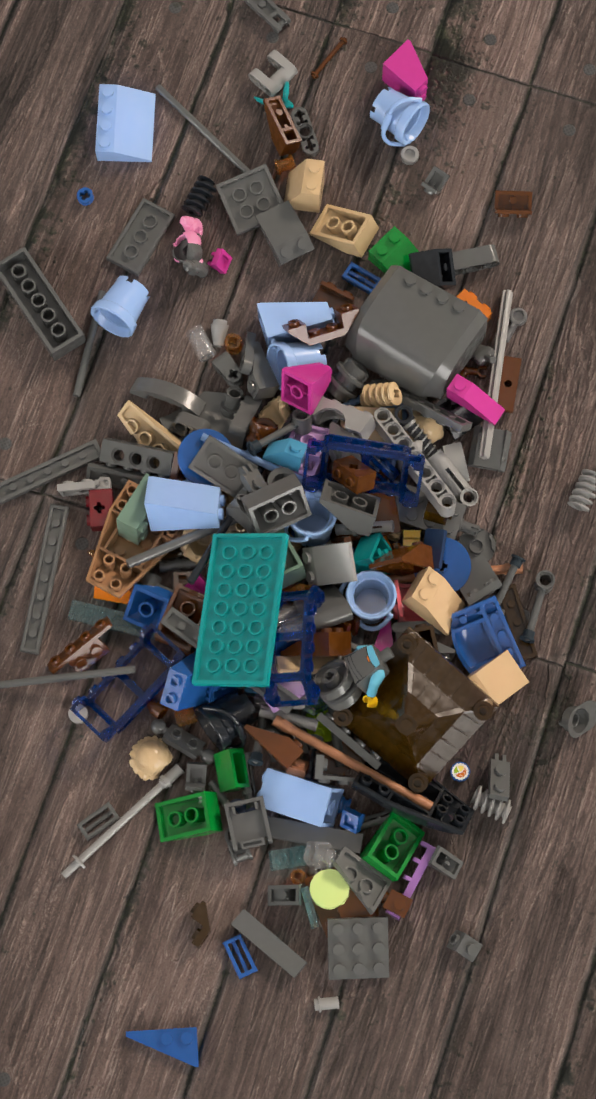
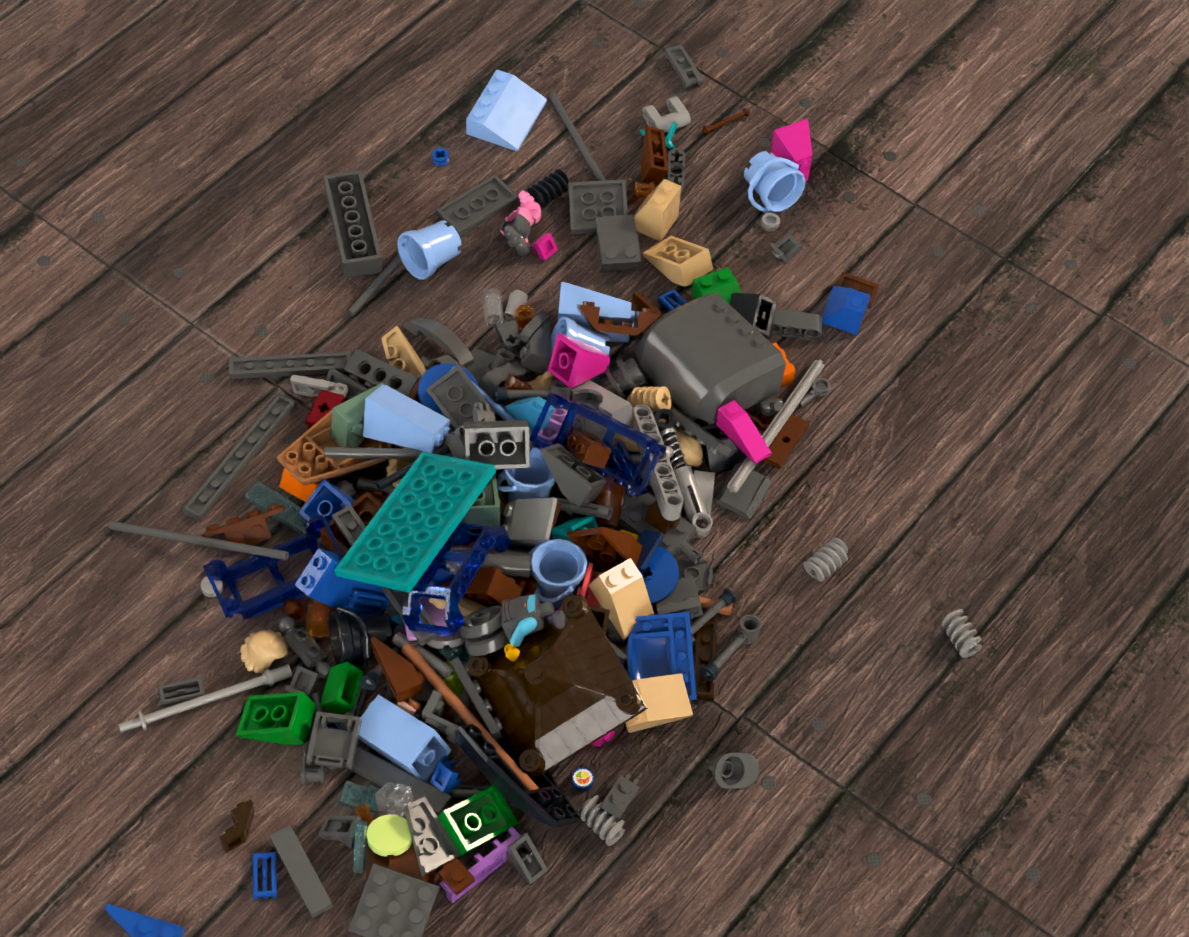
camera: 15 degrees right, 20 degrees down
(512, 228) = (846, 309): none -> blue slope

